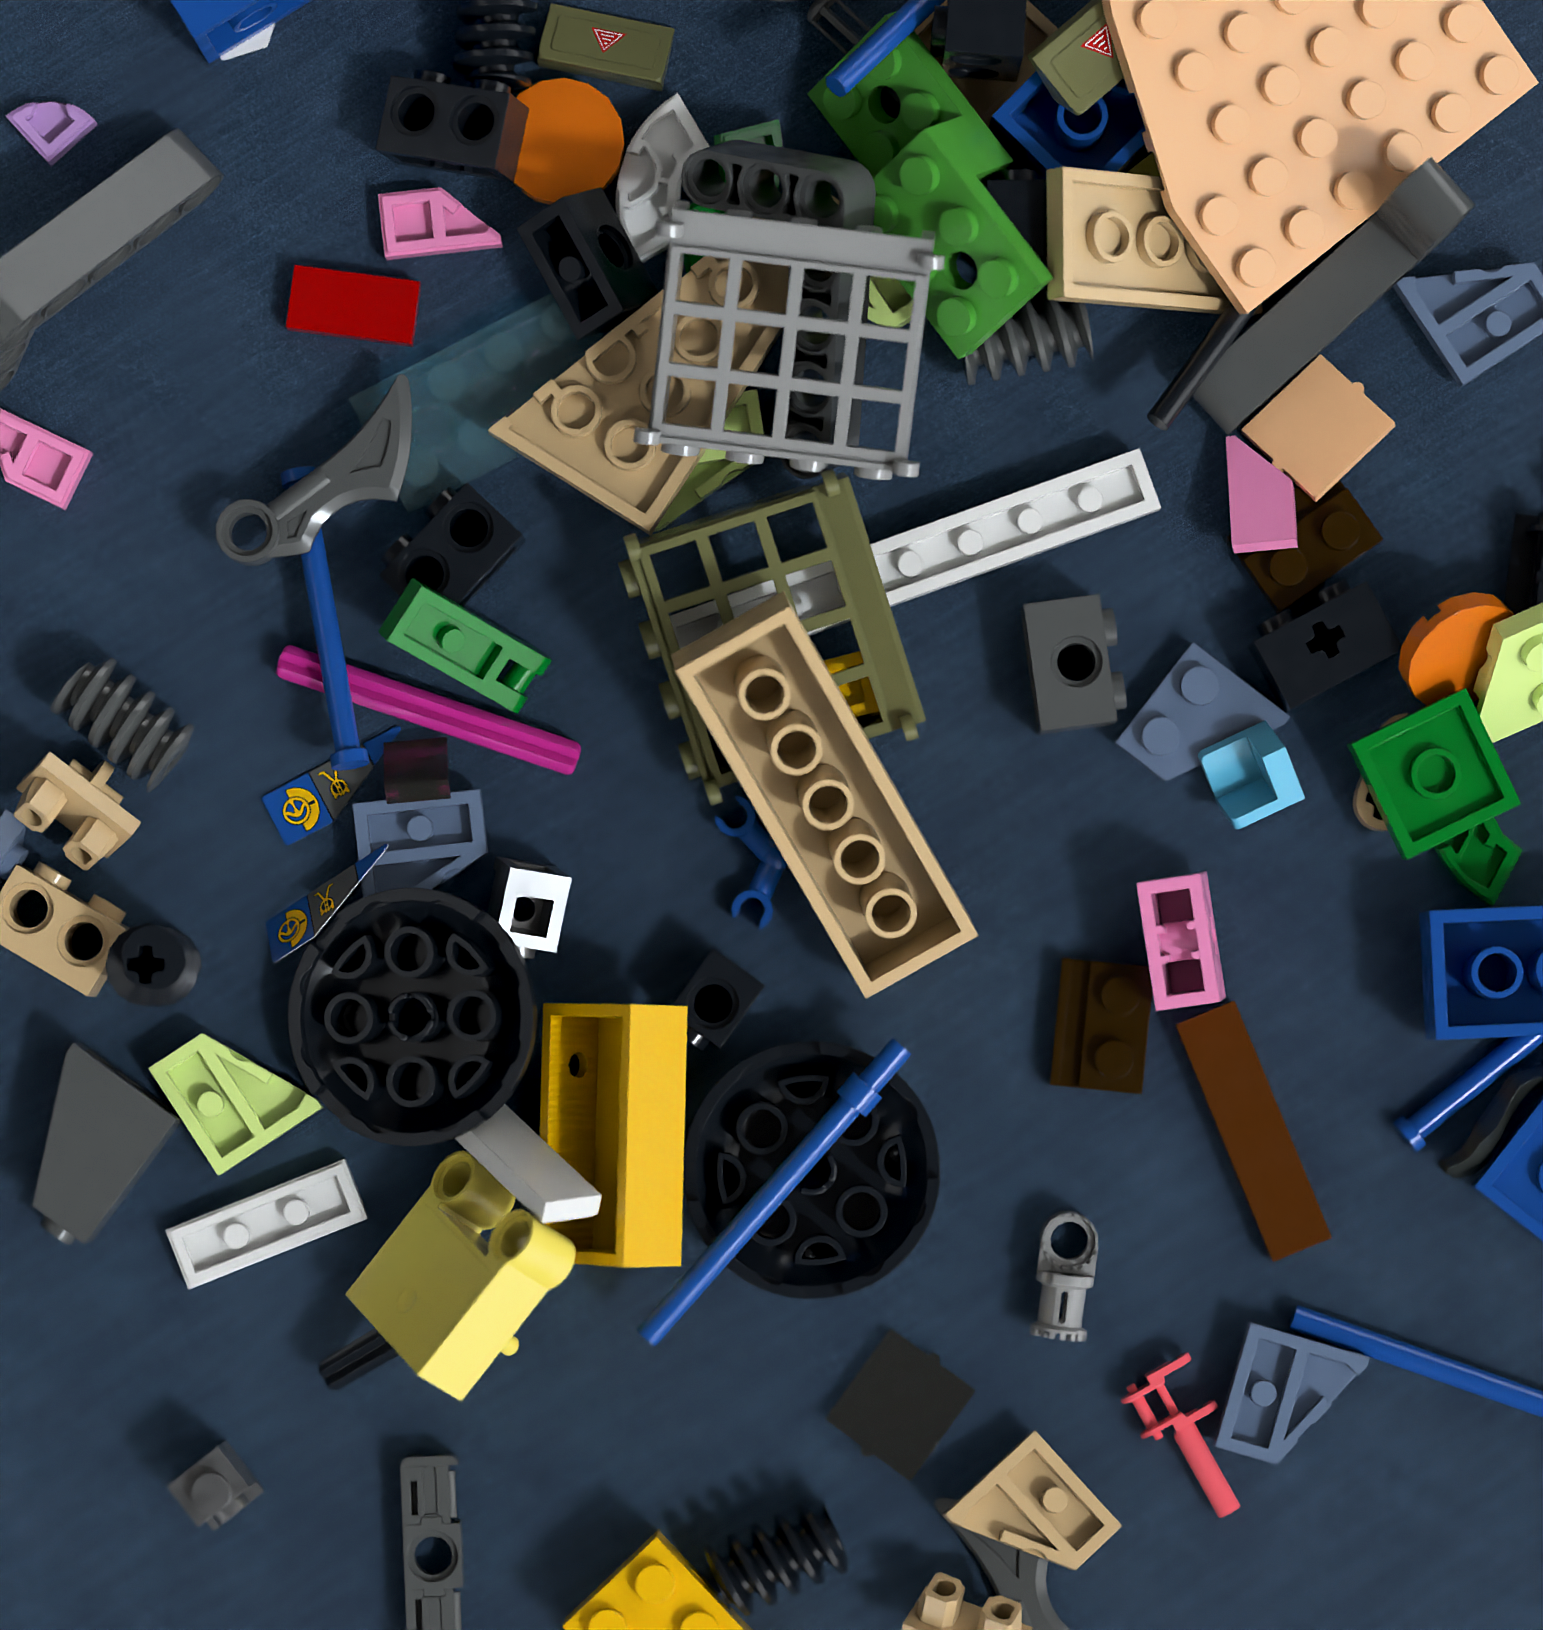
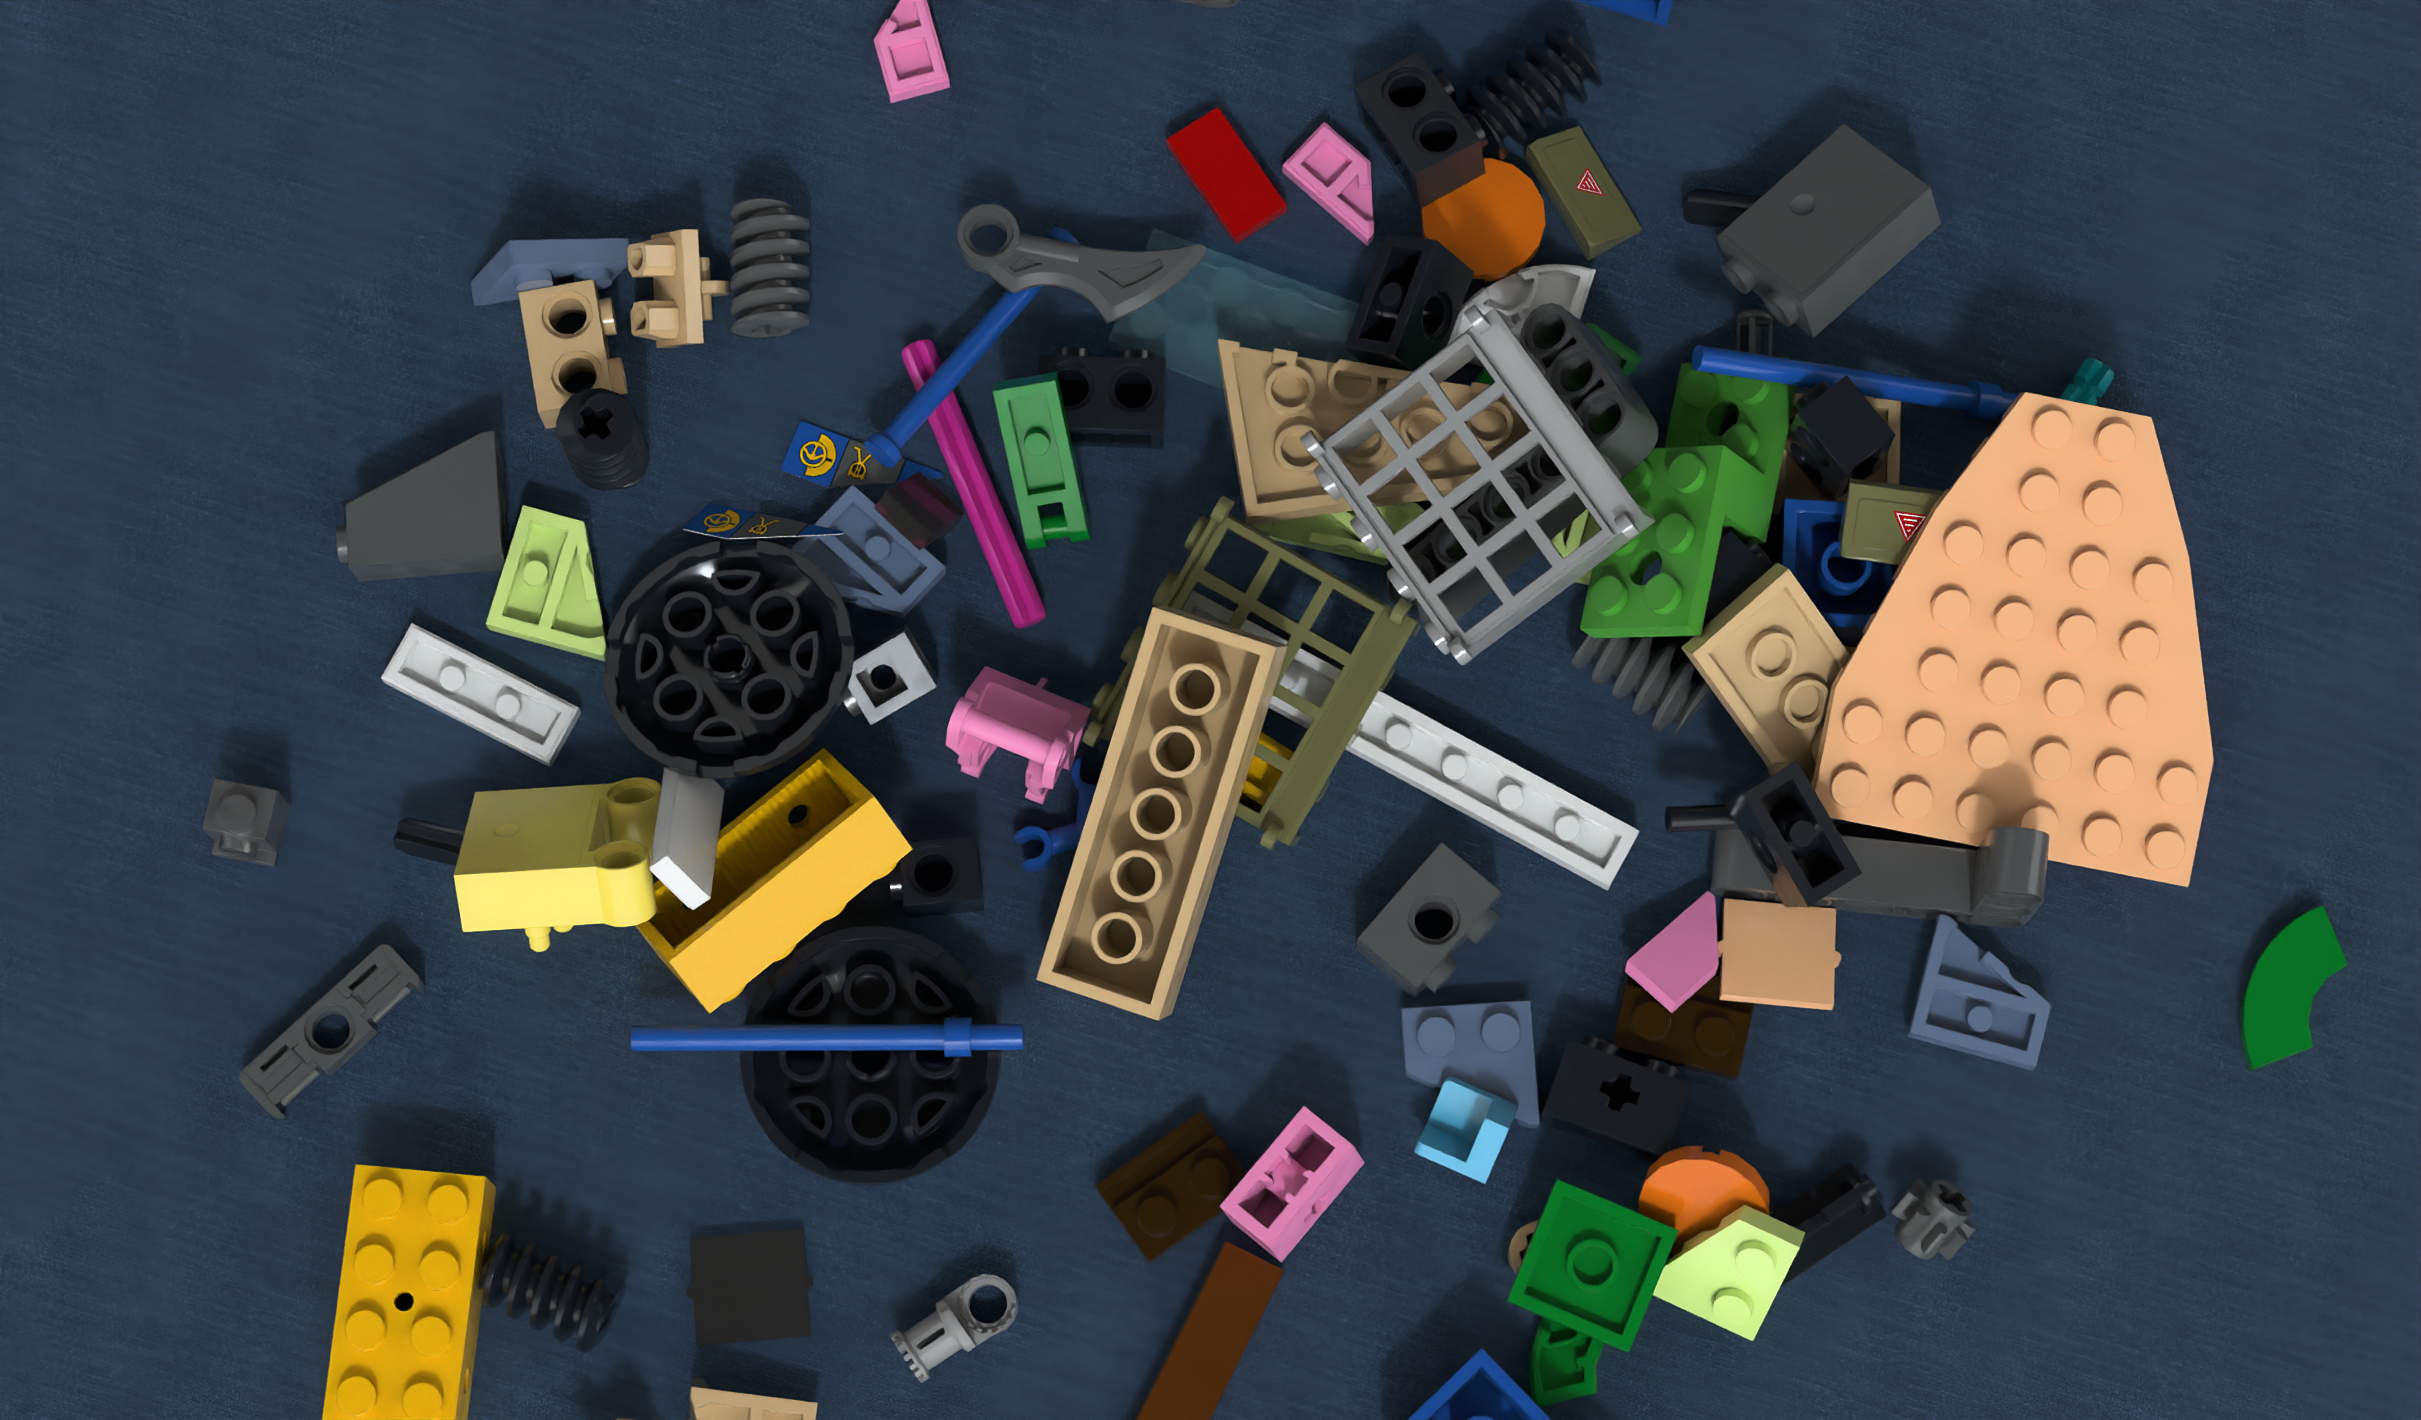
camera: 50 degrees right, 10 degrees down
(657, 841) = (1018, 719): none -> bright pink piece
(1255, 343) = (1791, 834): none -> black brick

